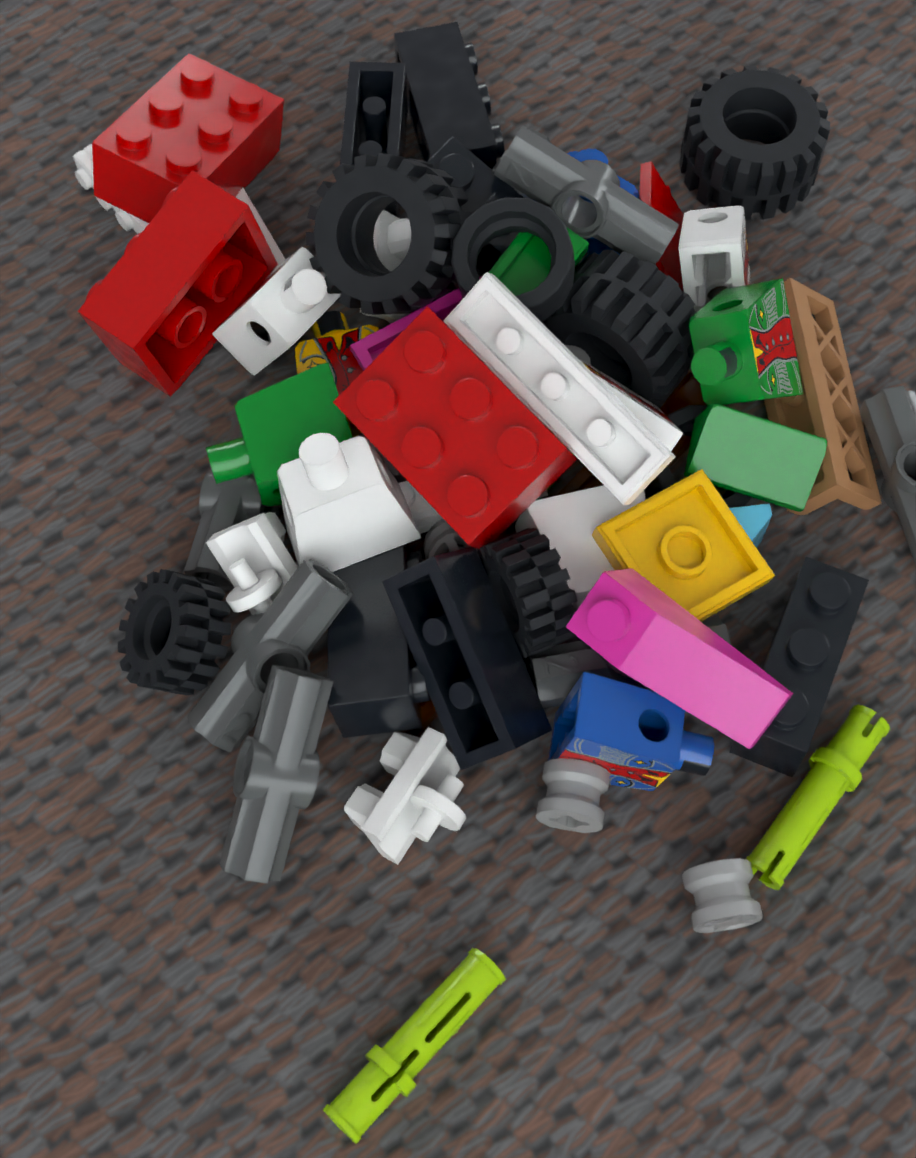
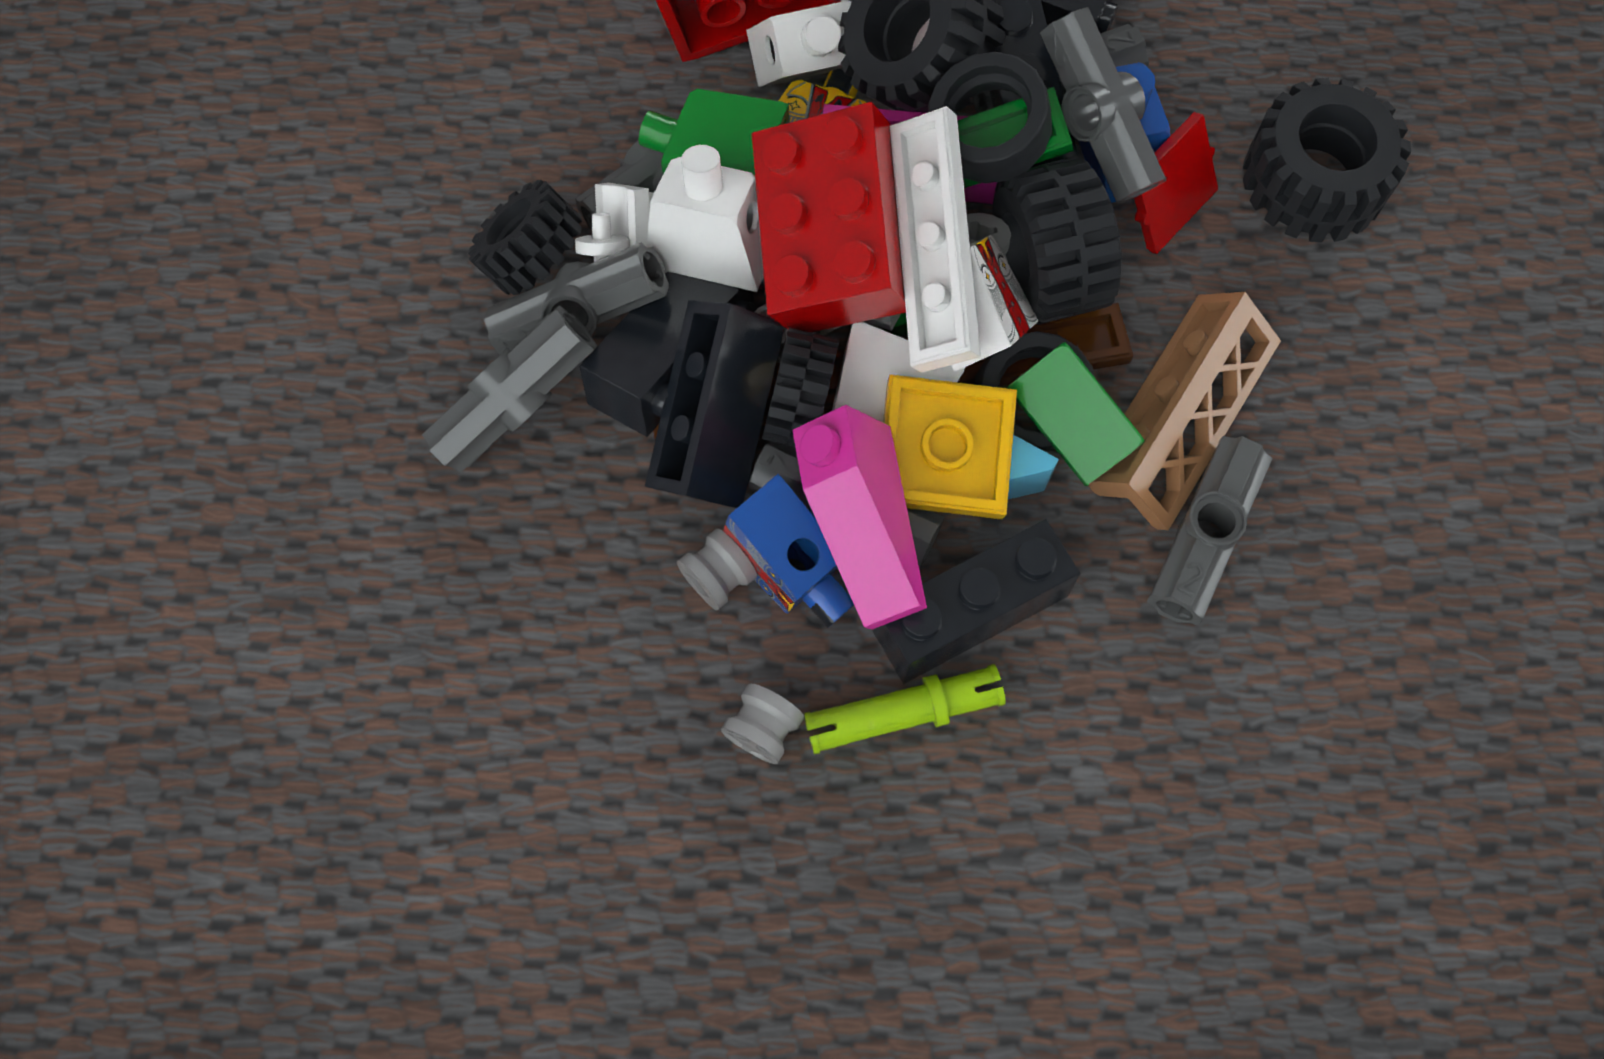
camera: 35 degrees right, 5 degrees up
(413, 1045) = (380, 665): lime pin -> none
(415, 799) = (597, 482): white hips -> none
(713, 251) = (1190, 228): white torso -> none
(745, 345) = (1140, 317): green torso -> none

